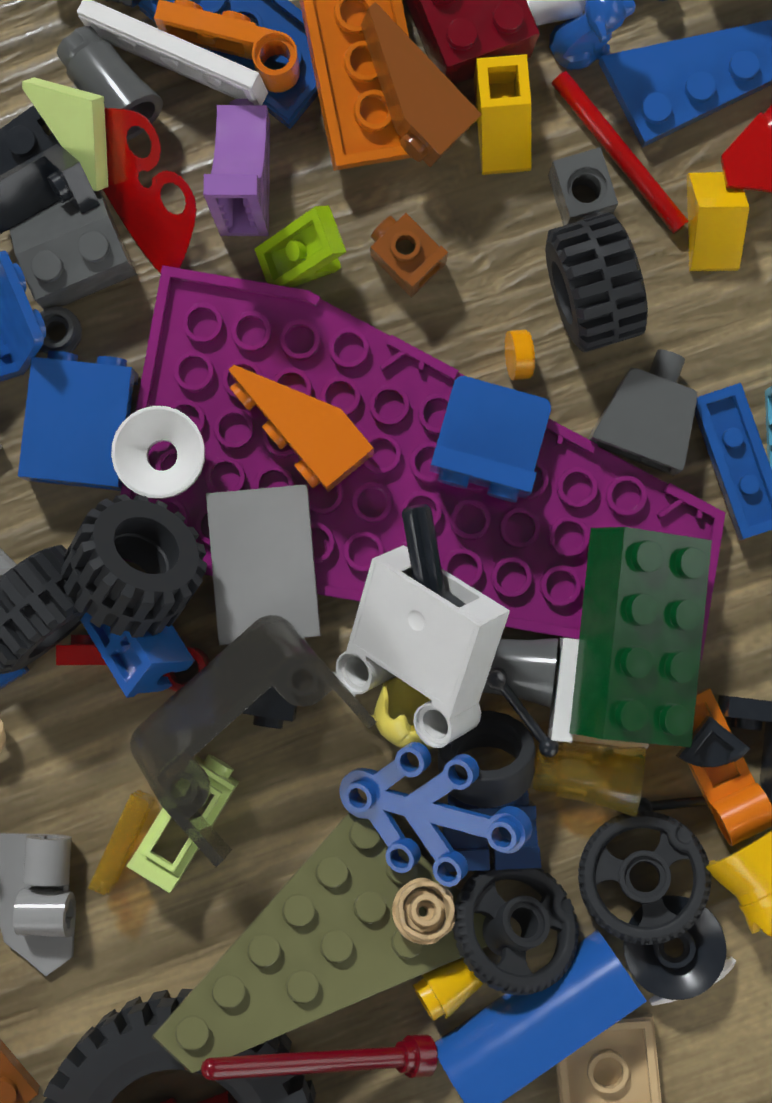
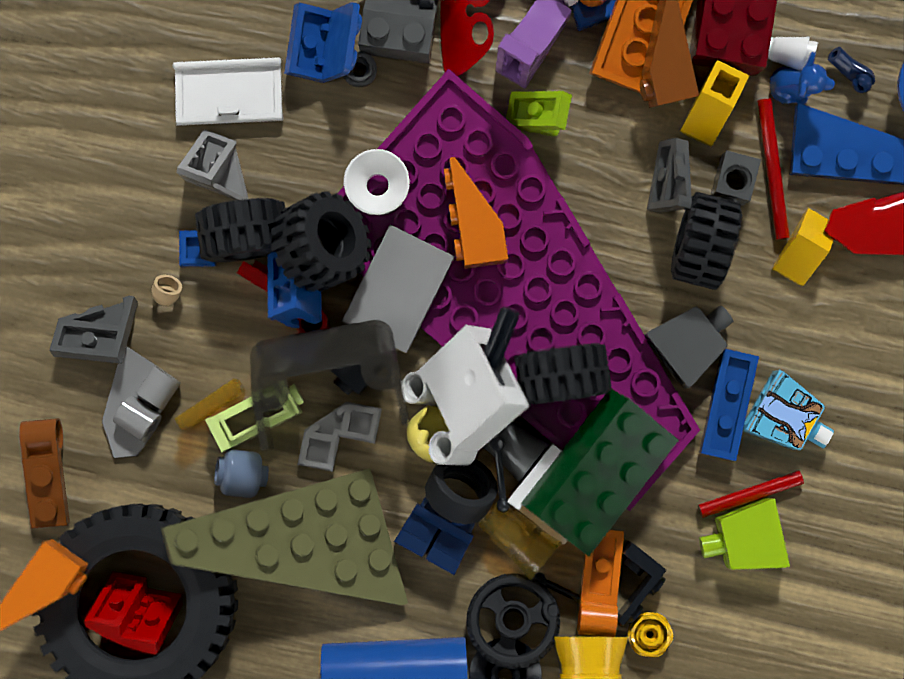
camera: 30 degrees right, 0 degrees up
(73, 419) = (337, 131): blue panel -> none
(209, 902) = (240, 473): none -> sand blue head
(282, 797) = (323, 437): none -> light grey tile
(408, 270) = (600, 164): dark orange brick -> none
(413, 1056) = (306, 642): dark red piece -> none
(425, 813) = (404, 498): blue plant -> none
(439, 907) = (378, 556): tan plate -> none
(446, 988) = (355, 613): yellow cone -> none
(491, 438) = (583, 296): blue bracket -> none
(507, 234) = (671, 177): none -> dark grey wing
(519, 354) = (633, 256): light orange tile -> none
(526, 545) = (563, 373): none -> black tyre
(535, 919) = (431, 603): black wheel -> none
(712, 746) = (603, 566): black tile -> none

